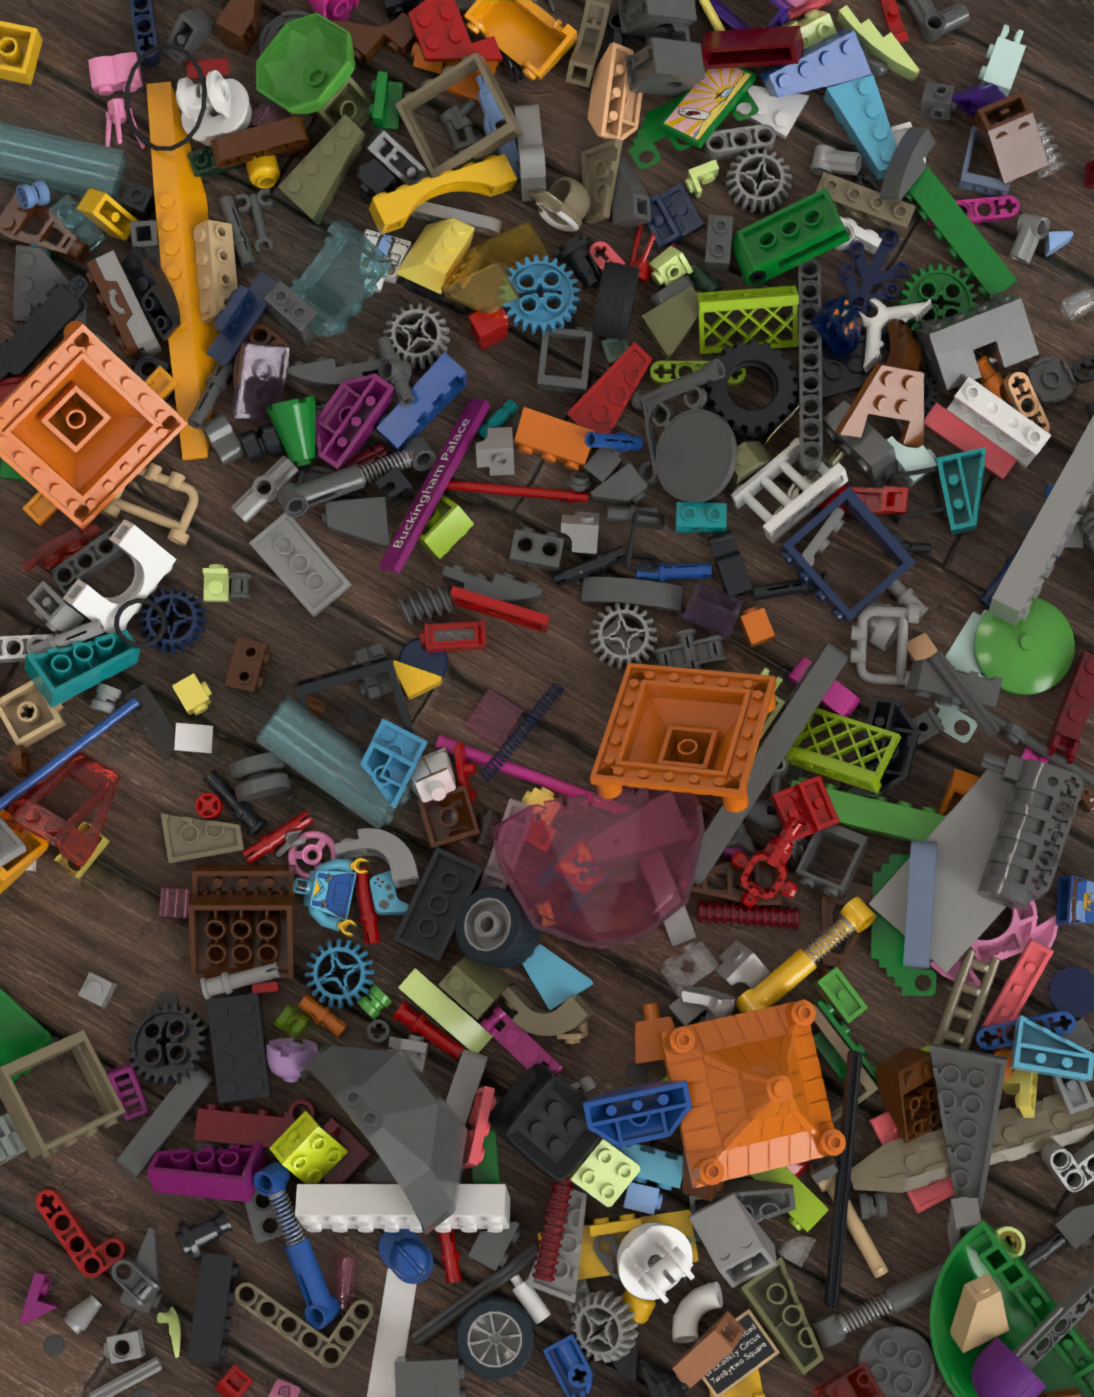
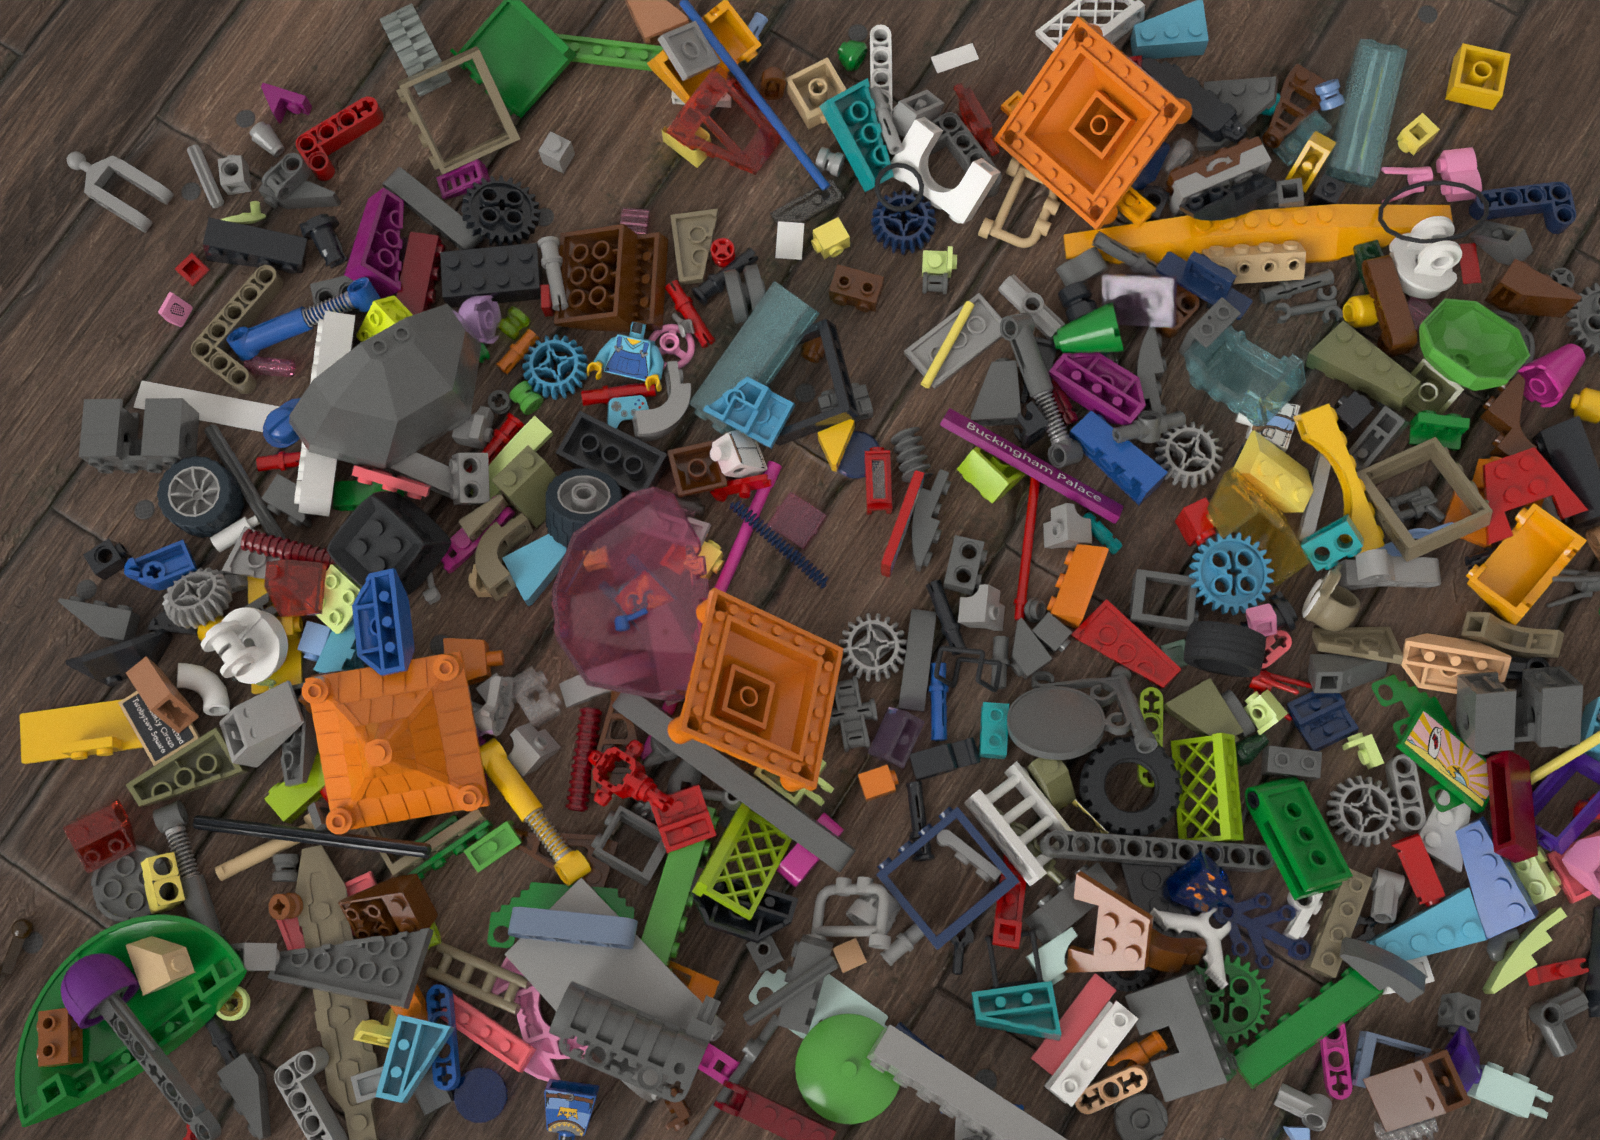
camera: 100 degrees right, 5 degrees down
(69, 106) = (1417, 134): none -> light yellow brick
(307, 571) = (947, 344): none -> light yellow bar
(467, 1043) = (477, 479): none -> light grey brick
(502, 203) = (1328, 538): none -> teal brick
(513, 1038) = (479, 519): none -> dark tan slope
(586, 266) = (1262, 619): none -> bright pink slope
(596, 1213) = (295, 586): none -> clear red slope
(611, 883) = (622, 622): none -> blue hand
(630, 442) = (1075, 663): blue pin -> none
(796, 1248) = (252, 789): clear brick -> none
(810, 132) = (1419, 869): none -> red window
(894, 1316) = (153, 896): none -> light yellow piece
(905, 1197) = (291, 909): none -> dark orange wheel

